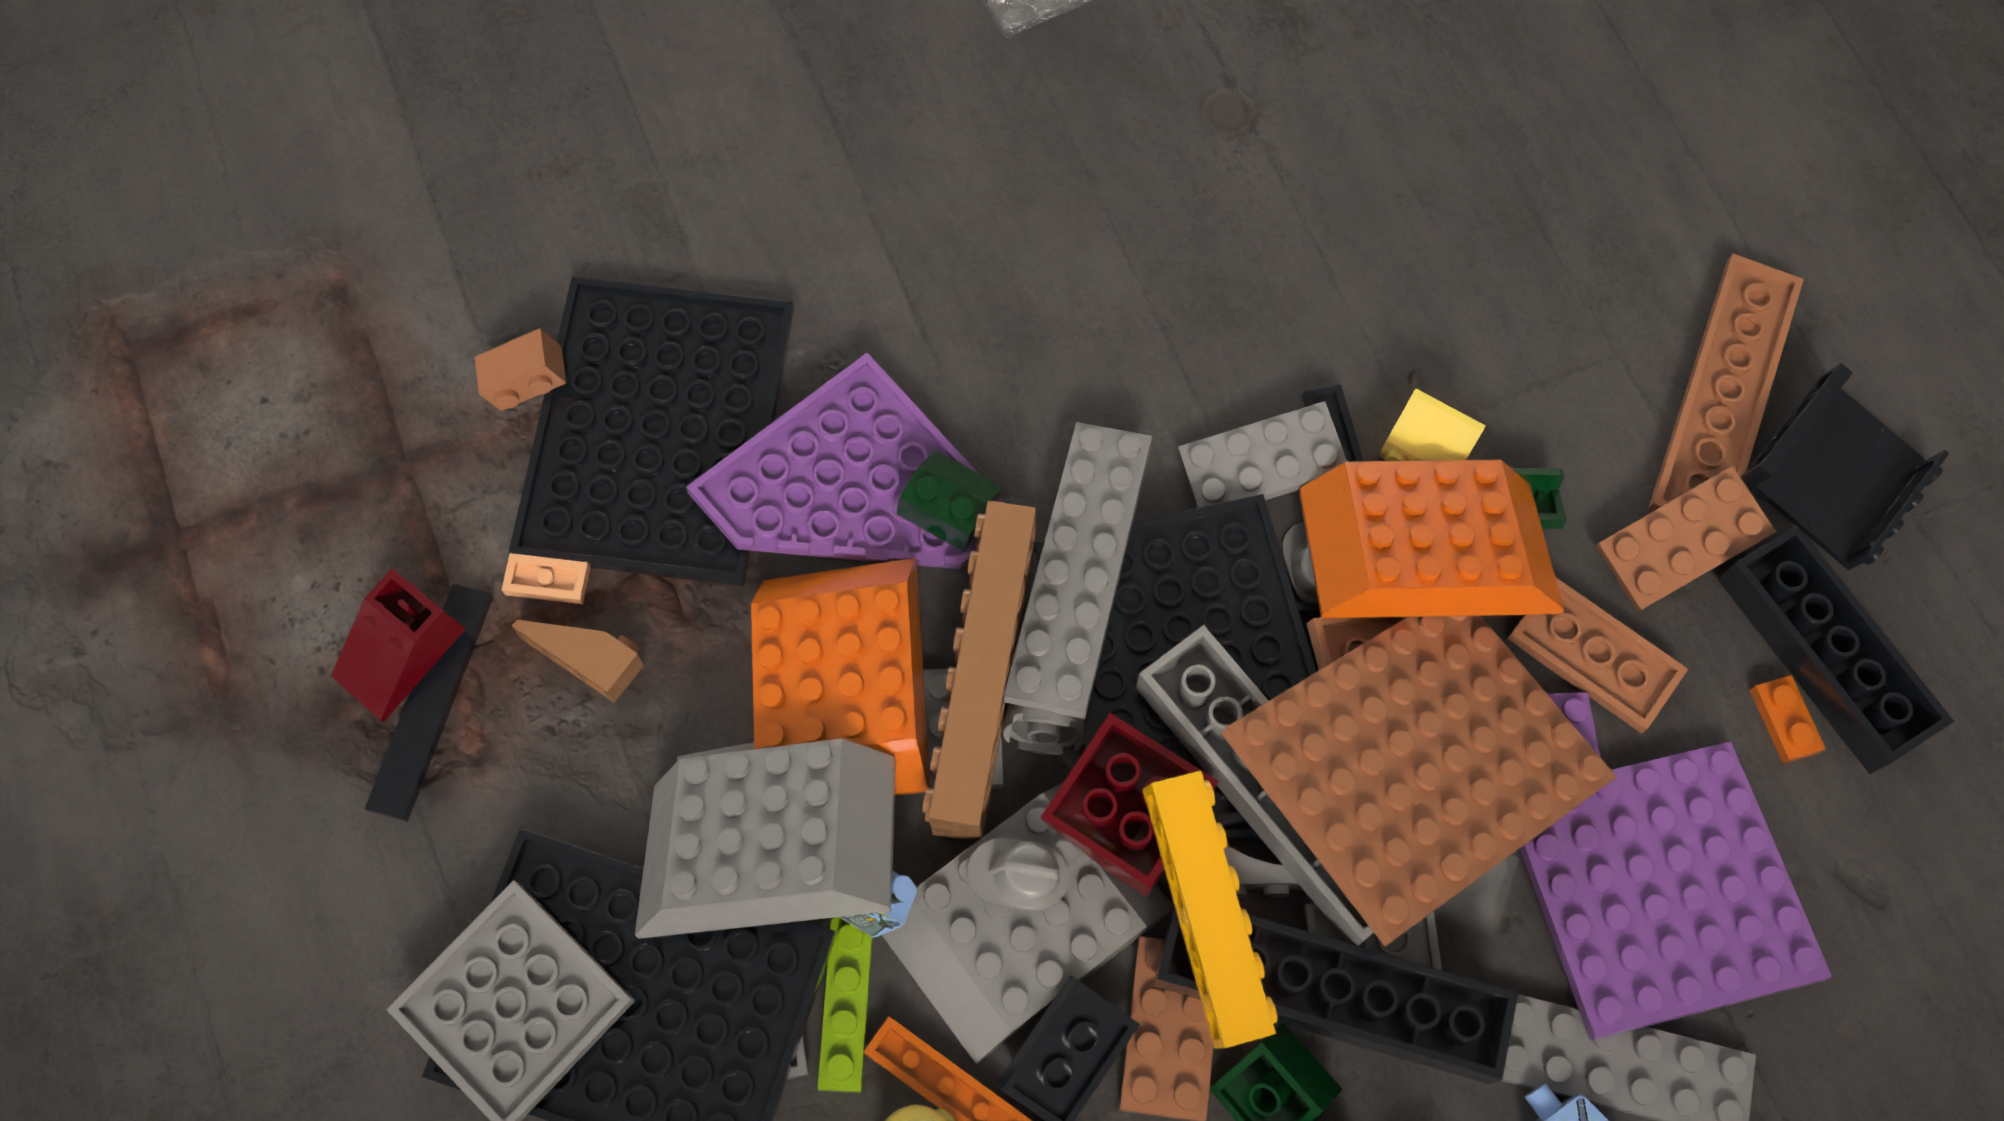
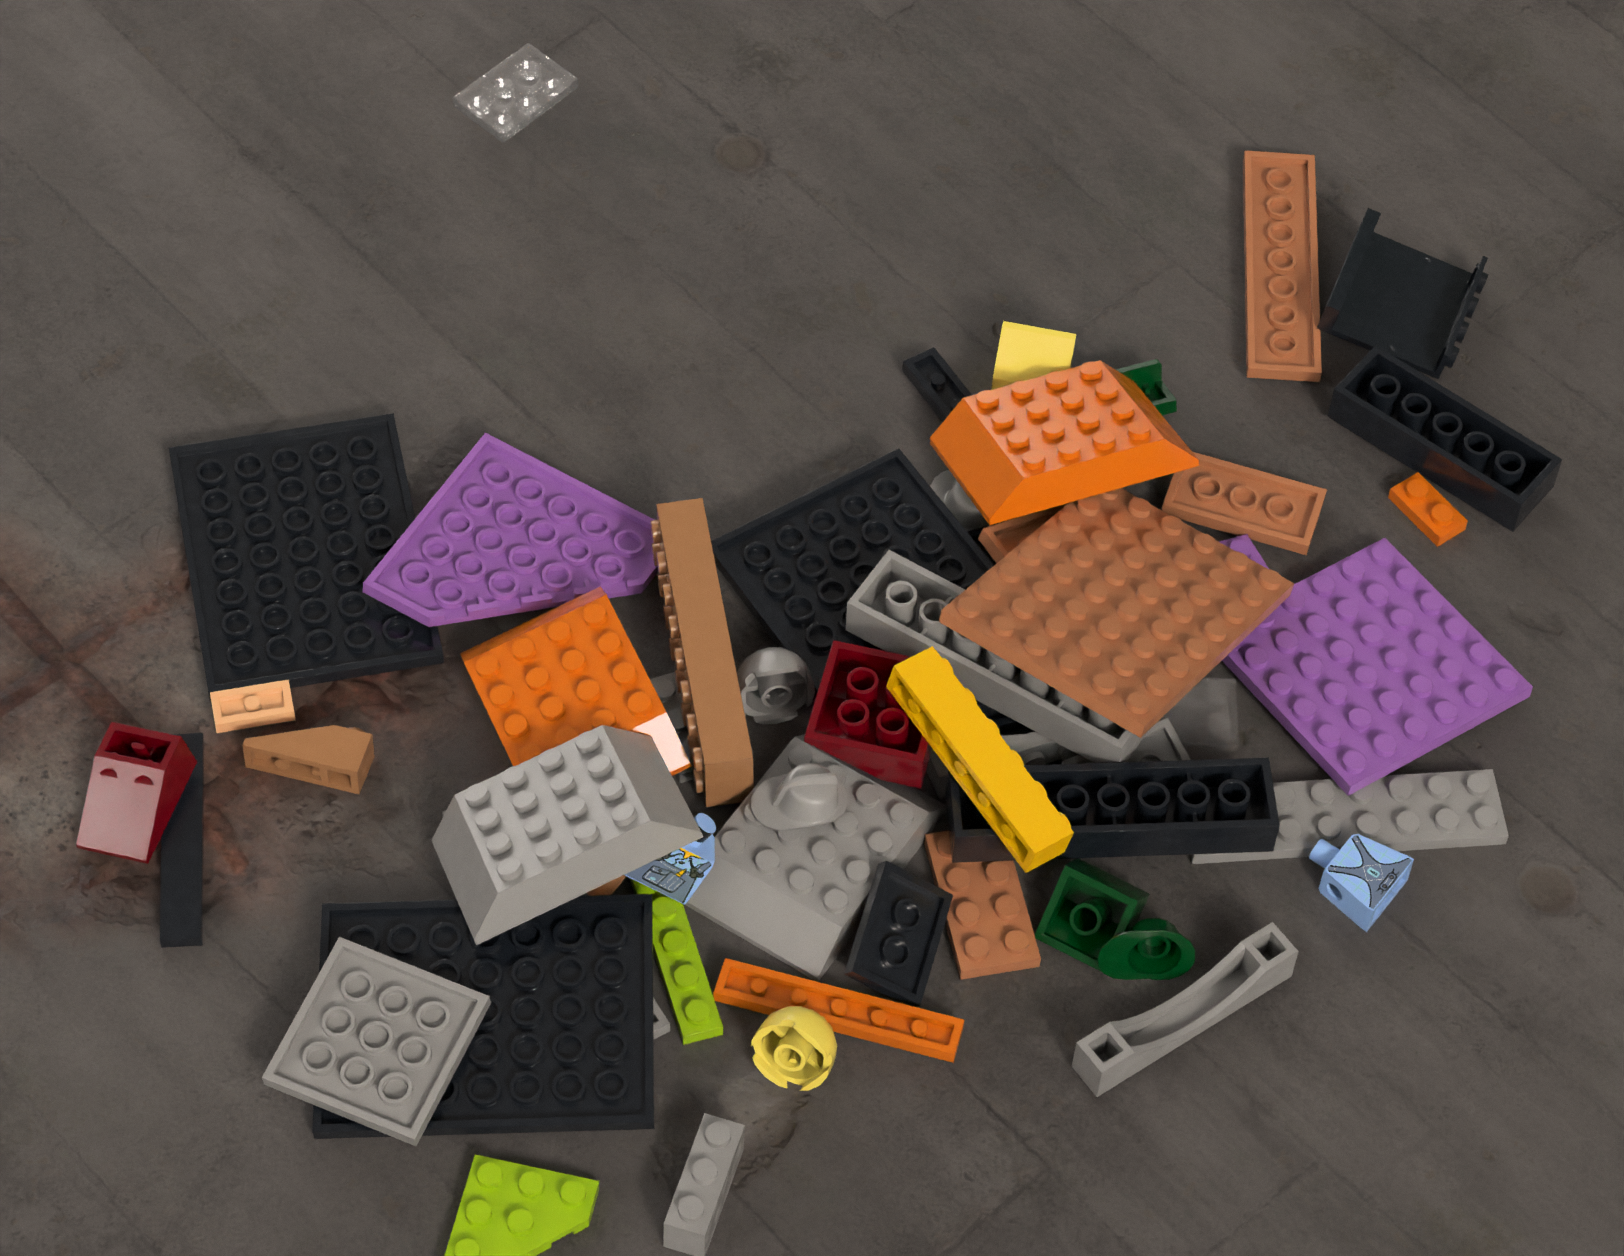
camera: 20 degrees left, 15 degrees down
(520, 370) = (155, 535): nougat brick -> none
(946, 499) = (611, 534): dark green slope -> none
(1078, 571) = (757, 548): light grey plate -> none
(1263, 457) = (892, 418): light grey plate -> none
(1685, 538) = (1285, 388): nougat plate -> none

